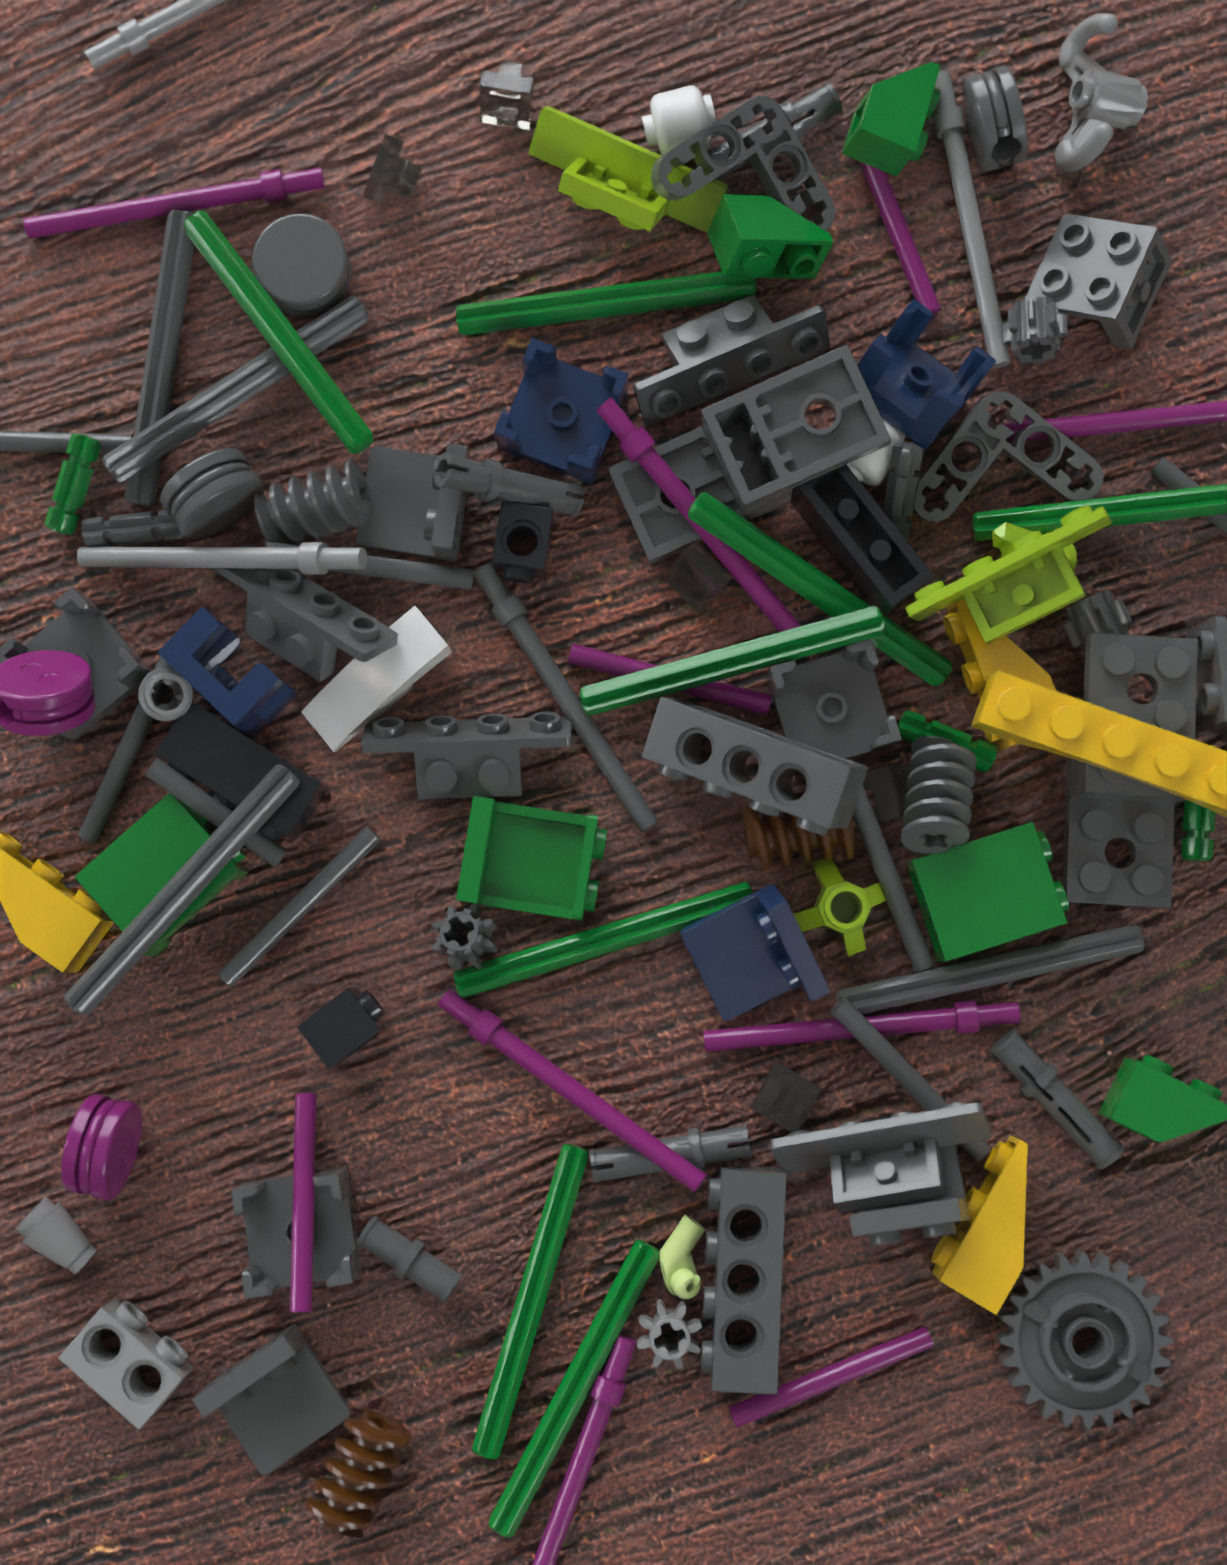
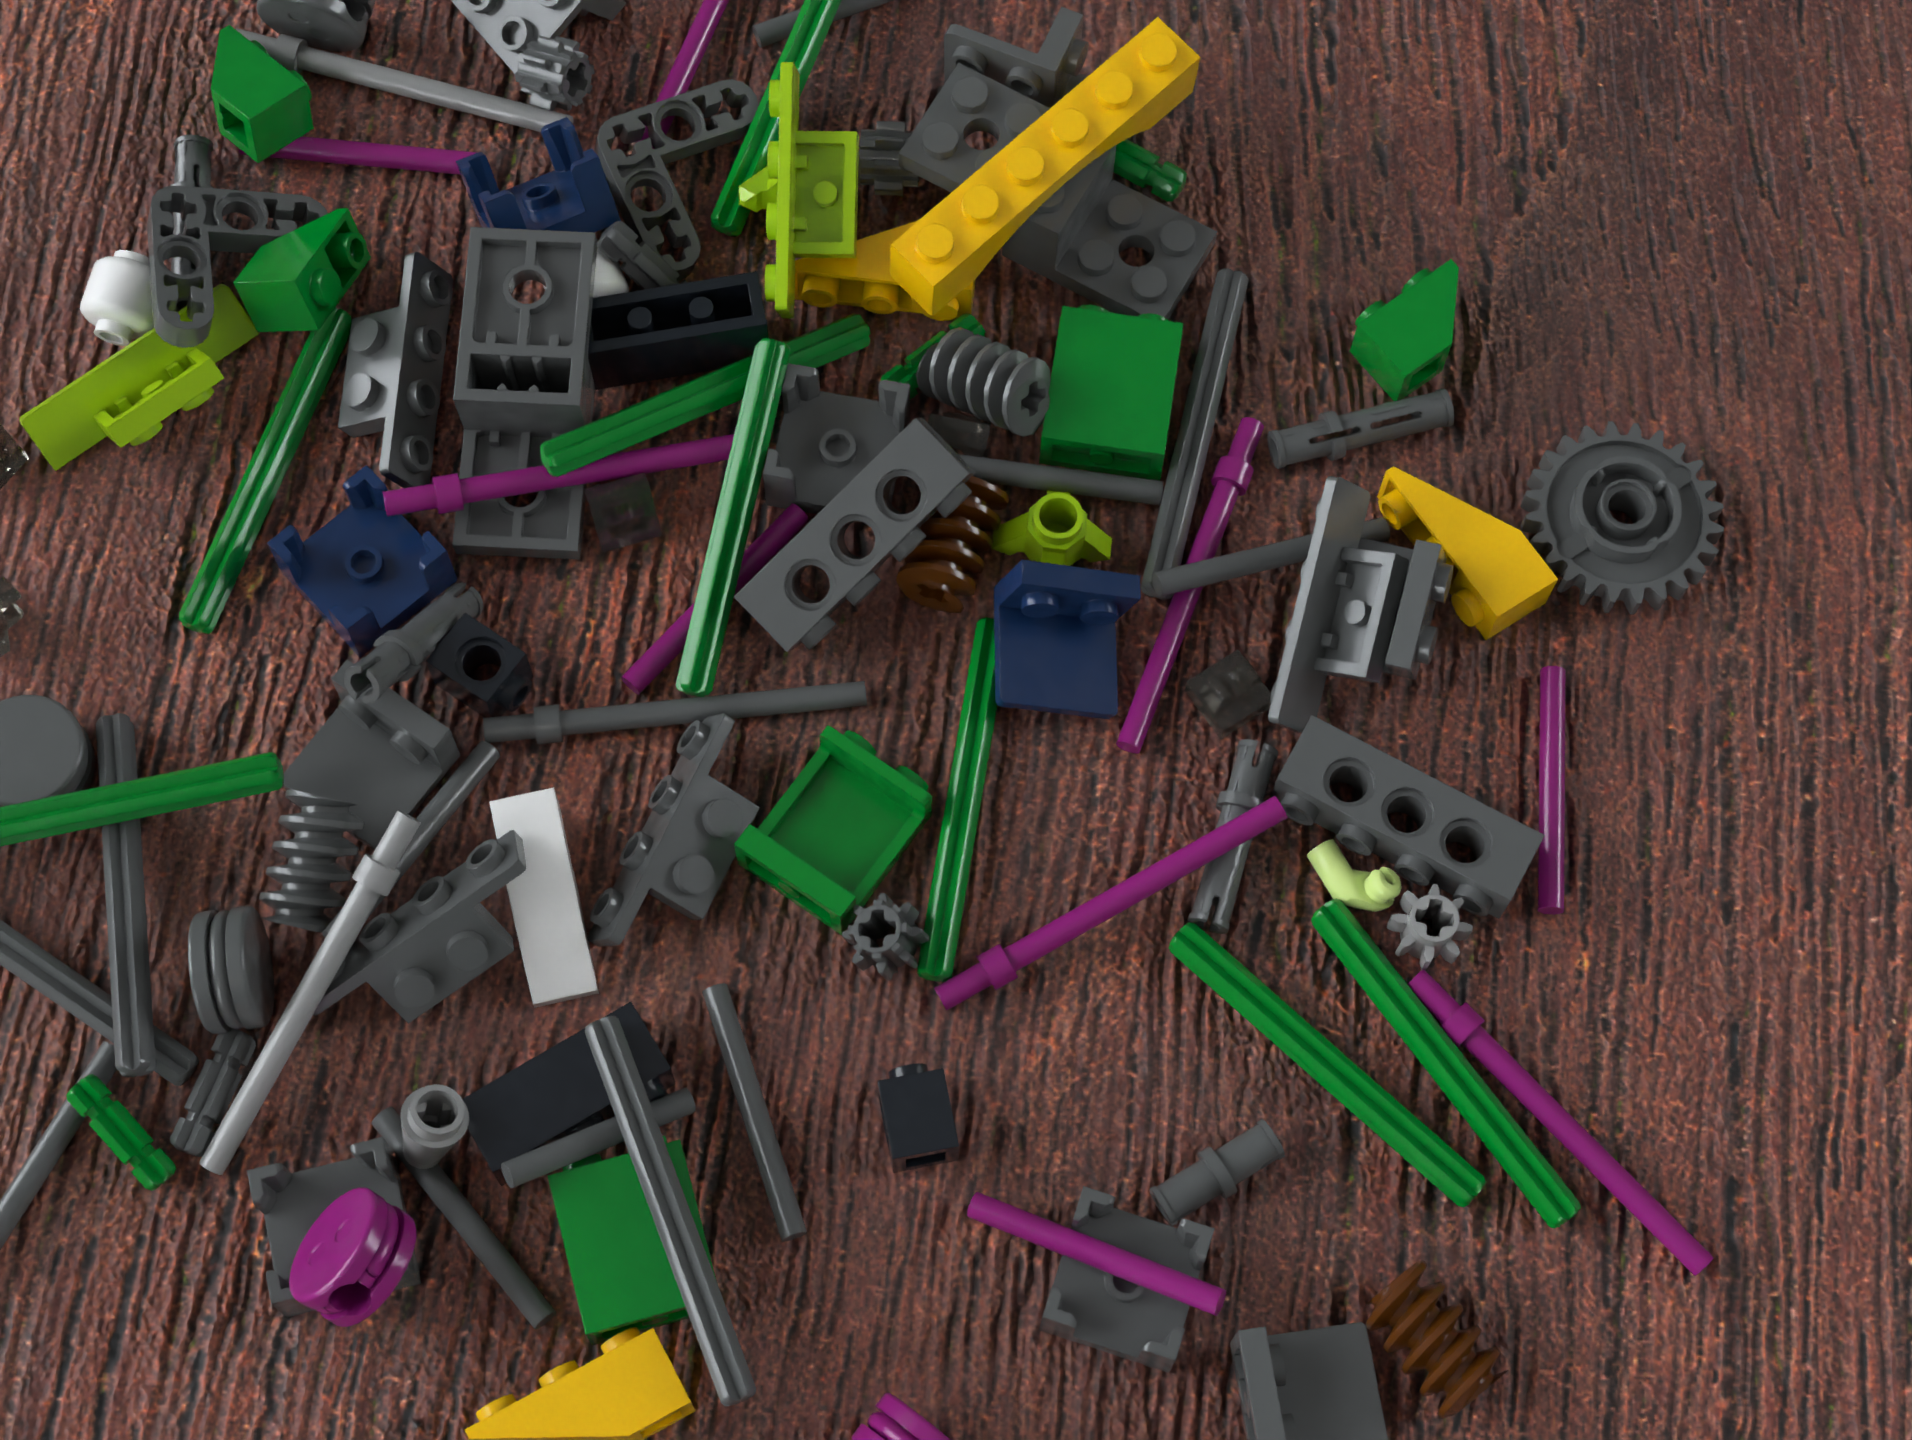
camera: 70 degrees left, 15 degrees down
(197, 656) = (458, 1062): dark blue panel -> none

